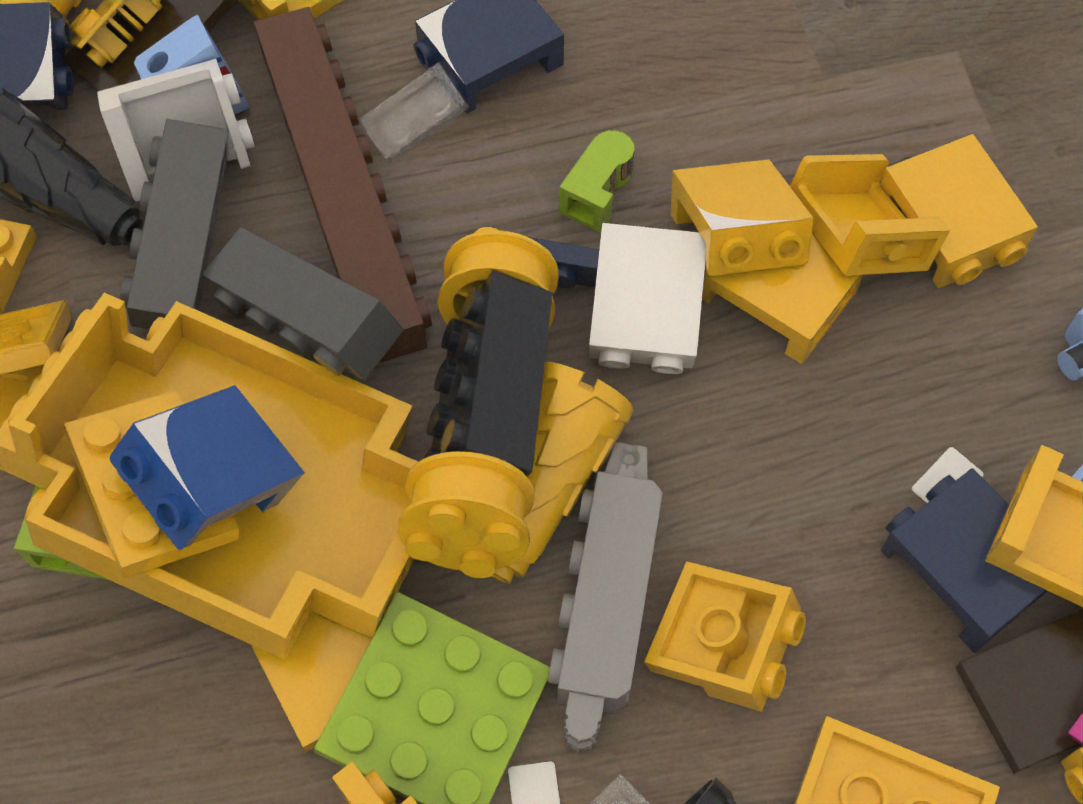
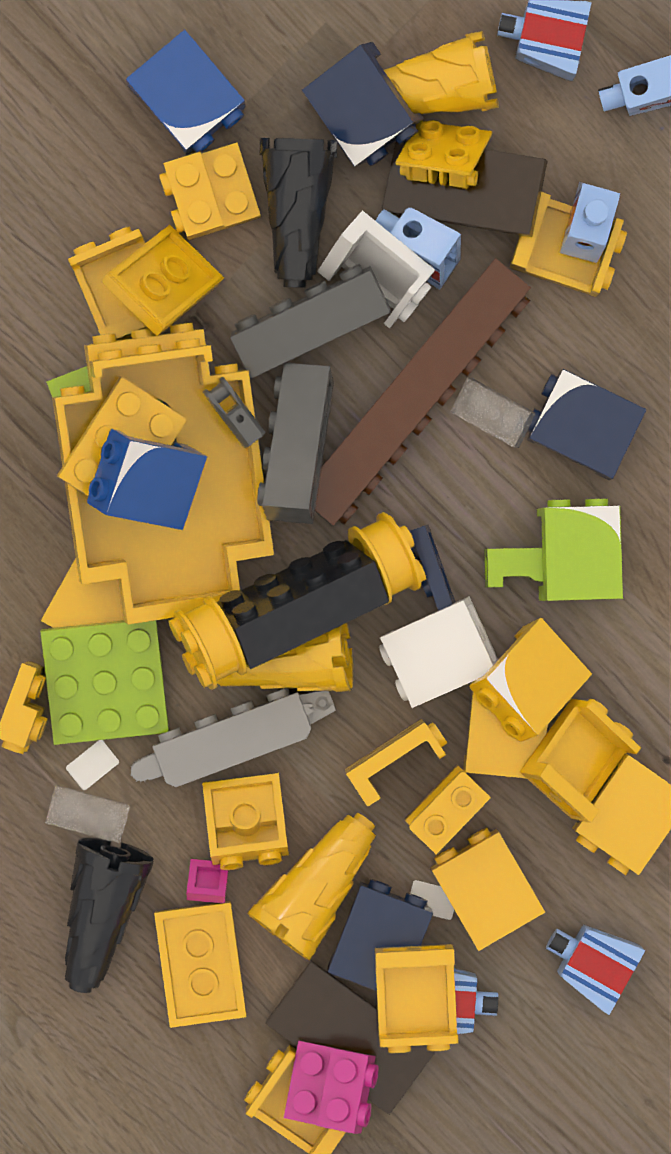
camera: 60 degrees right, 25 degrees up
(220, 335) = (238, 417): none -> dark grey bar
(626, 106) = (581, 551): none -> lime panel
(751, 454) = (389, 752): none -> yellow panel
(781, 732) = (206, 882): none -> dark pink plate
(851, 383) = (446, 809): none -> yellow panel
(871, 608) = (305, 900): none -> yellow cone
(968, 399) = (486, 888): none -> yellow panel

